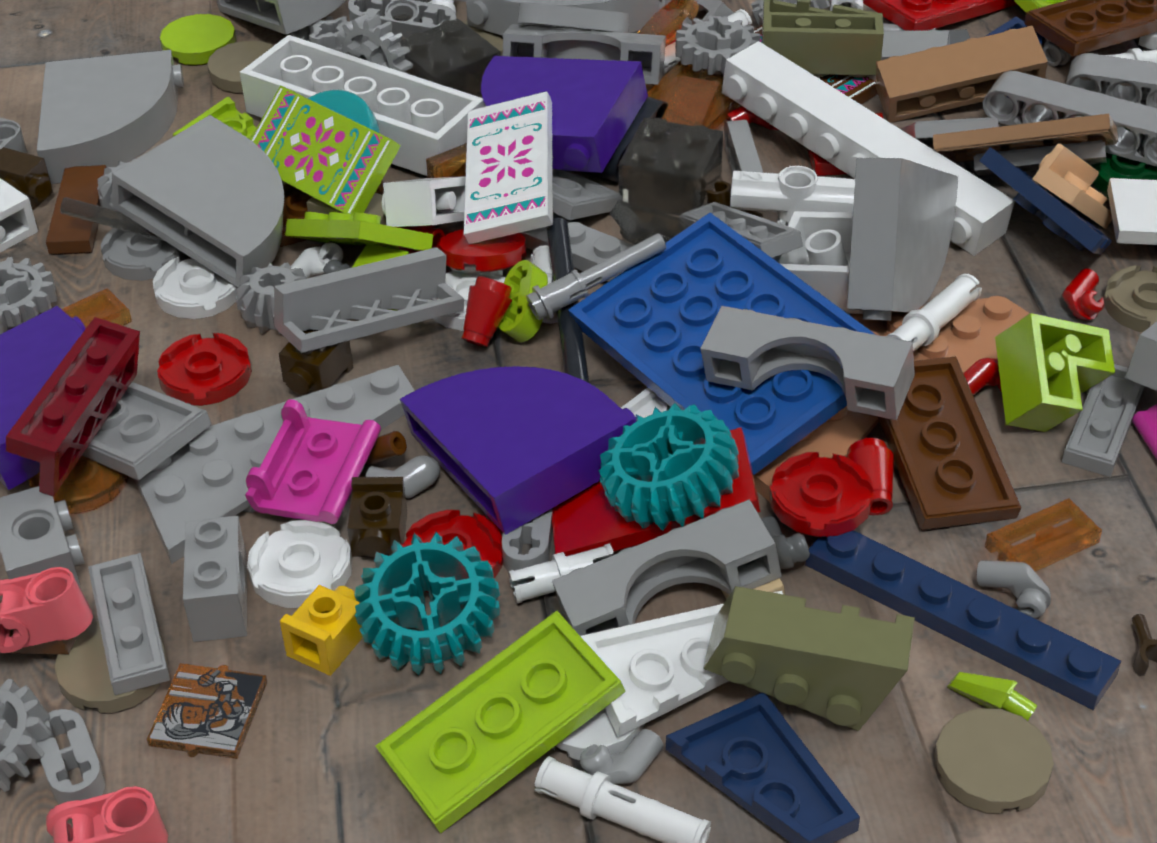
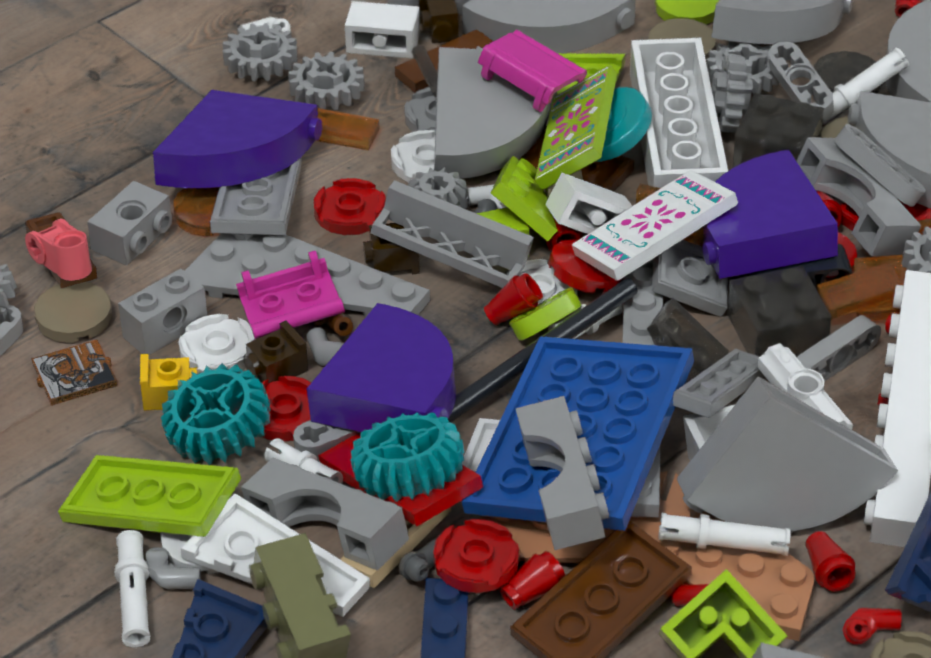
camera: 55 degrees right, 0 degrees up
(76, 401) = (230, 157): dark red fence -> none
(128, 624) = (99, 296): light grey tile -> none
(223, 131) = (529, 66): none -> dark pink piece
(574, 285) = (534, 320): light grey pin -> none
(999, 279) = (830, 563): none -> red cone

